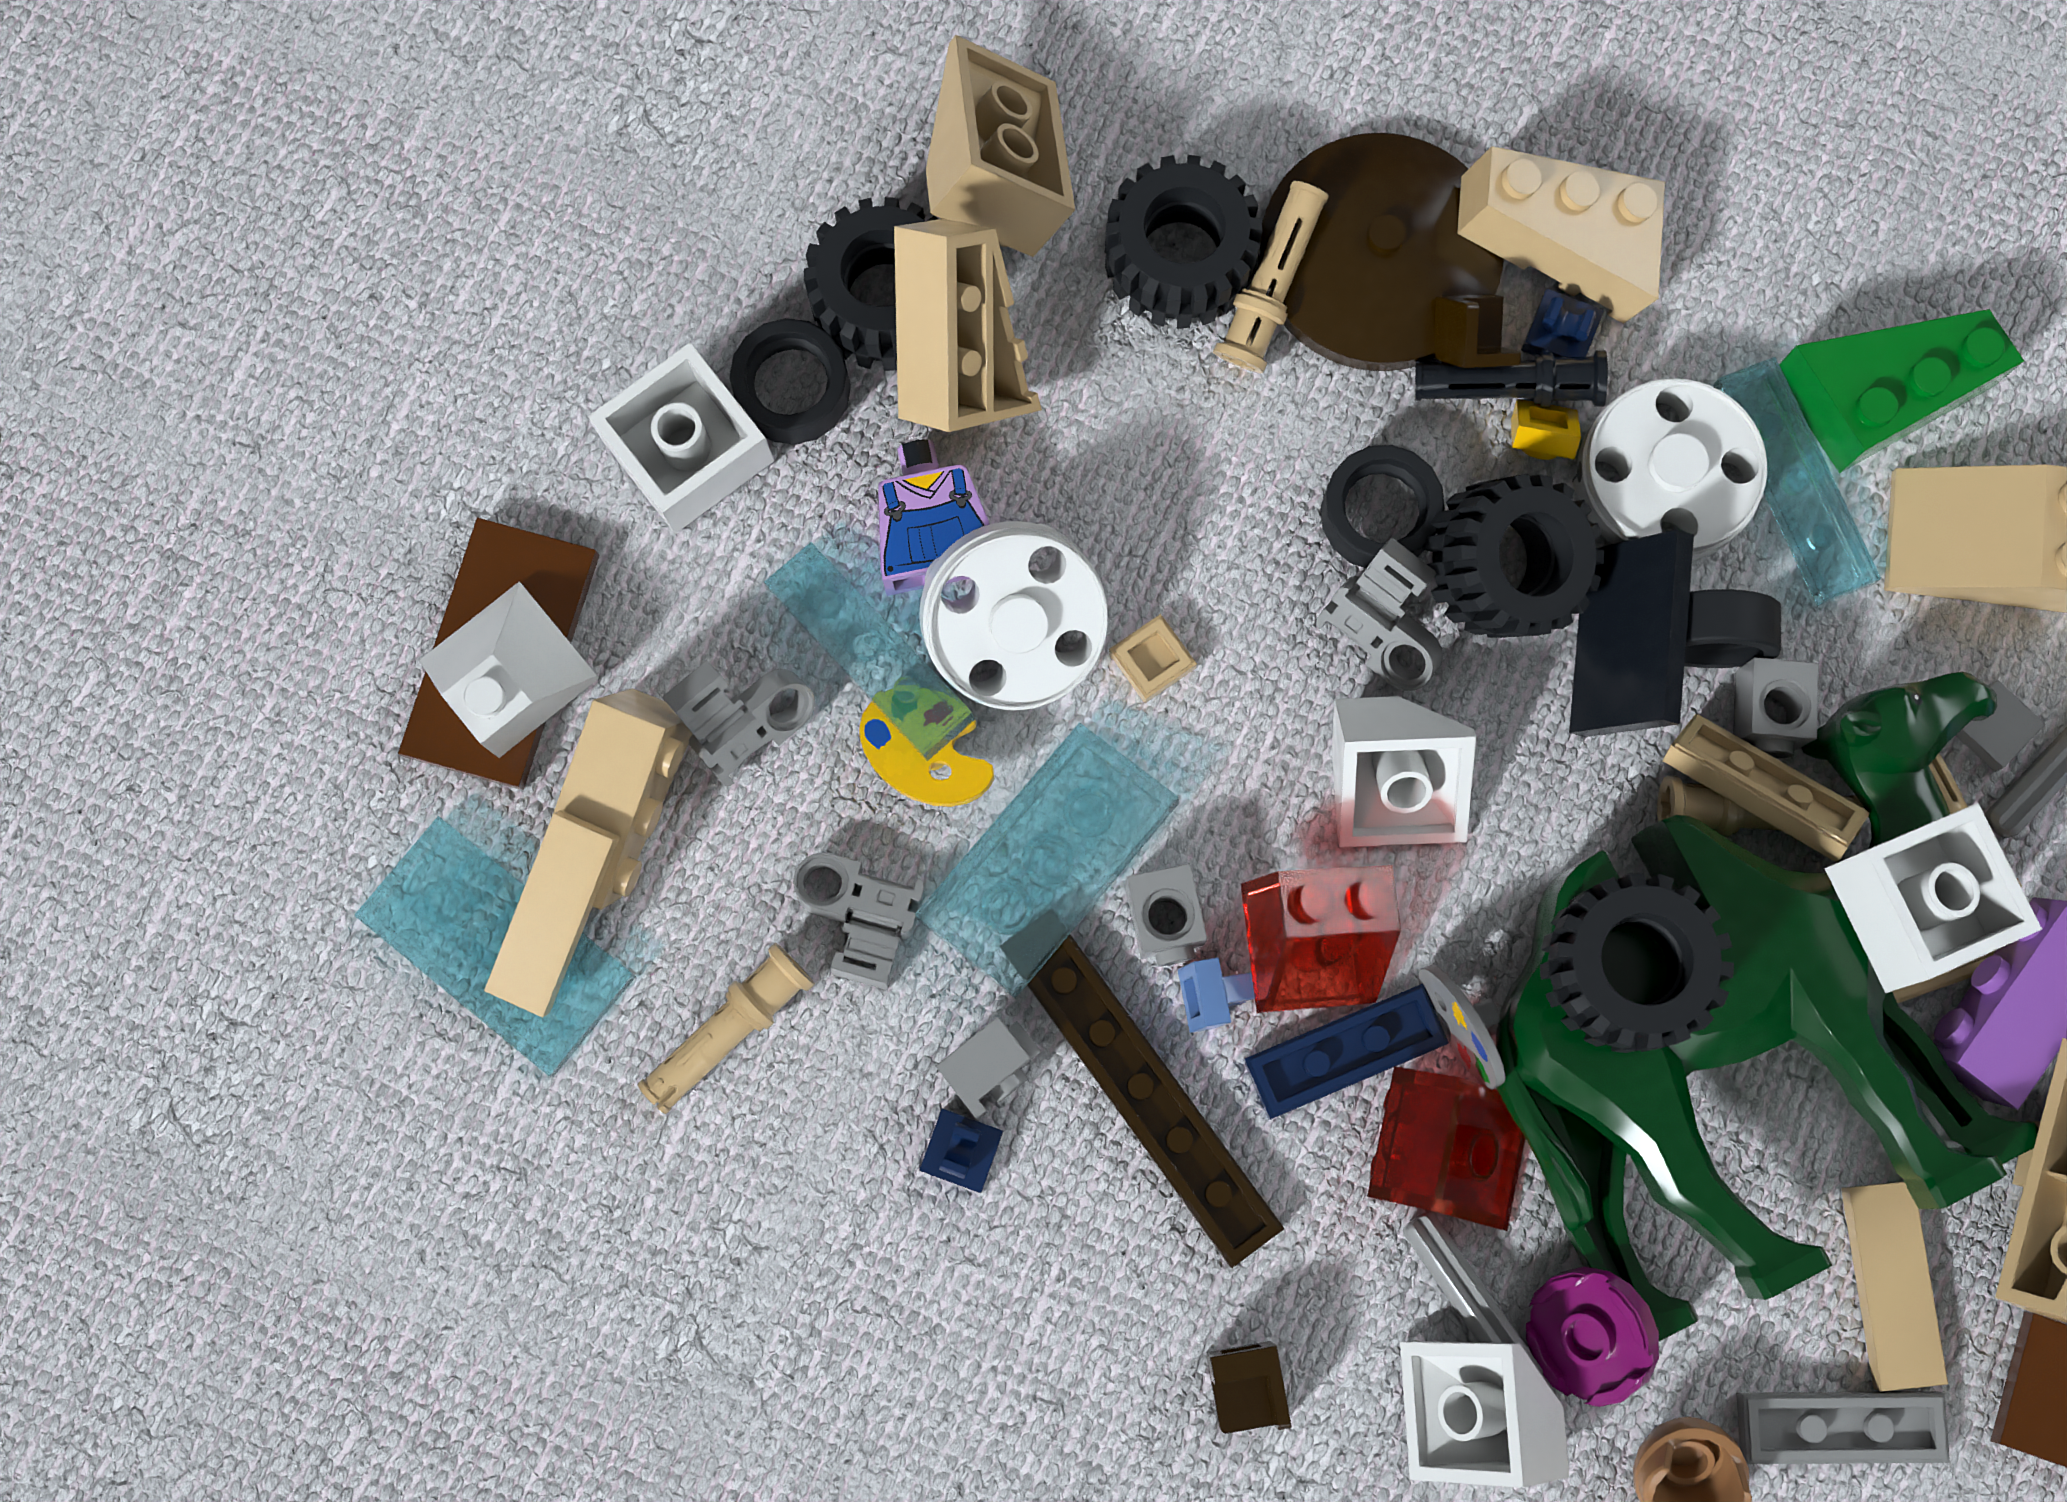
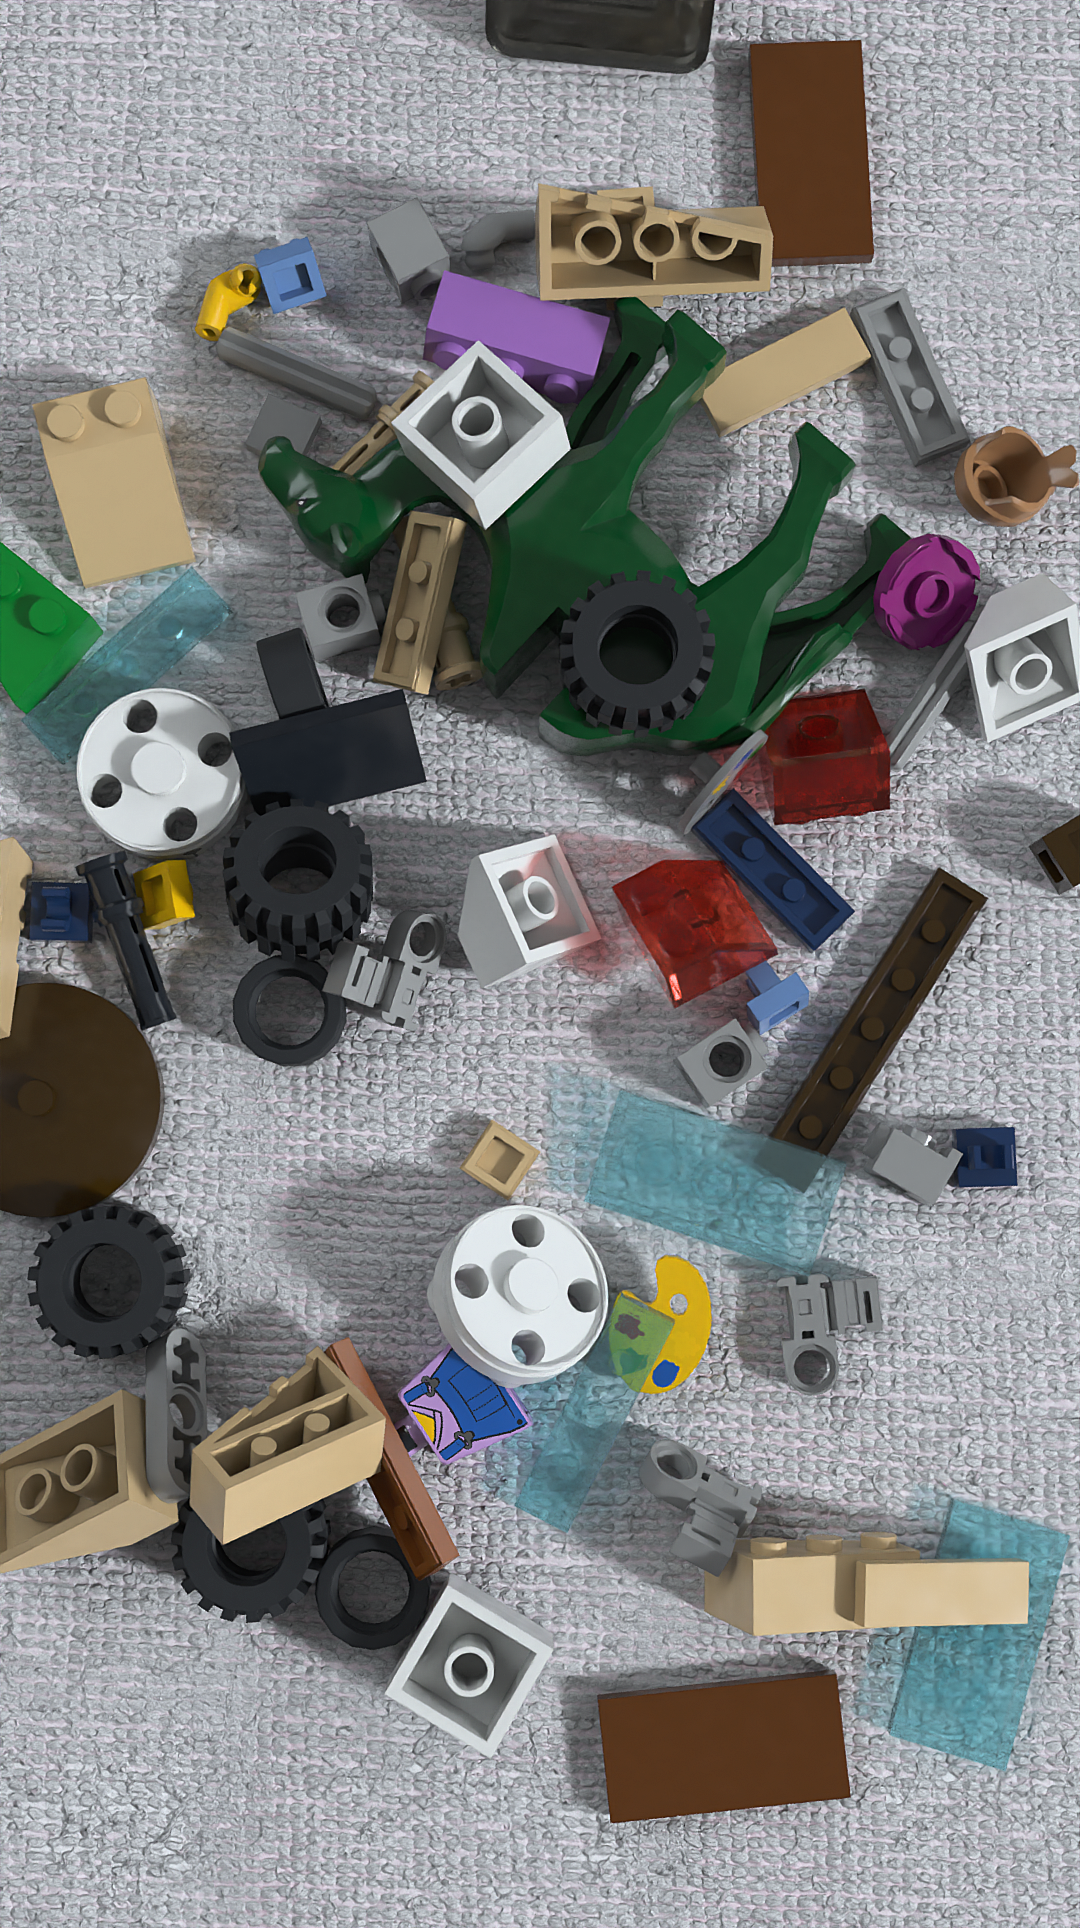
camera: 115 degrees left, 5 degrees up
(507, 670) = (742, 1732): white slope -> none
(747, 1008) = (945, 1388): tan pin -> none
(885, 431) = (399, 1484): none -> dark orange tile
(1047, 274) = (174, 1374): none -> light grey beam
(1268, 310) = (145, 1186): tan pin -> none
(1471, 332) = (102, 989): dark brown panel -> none

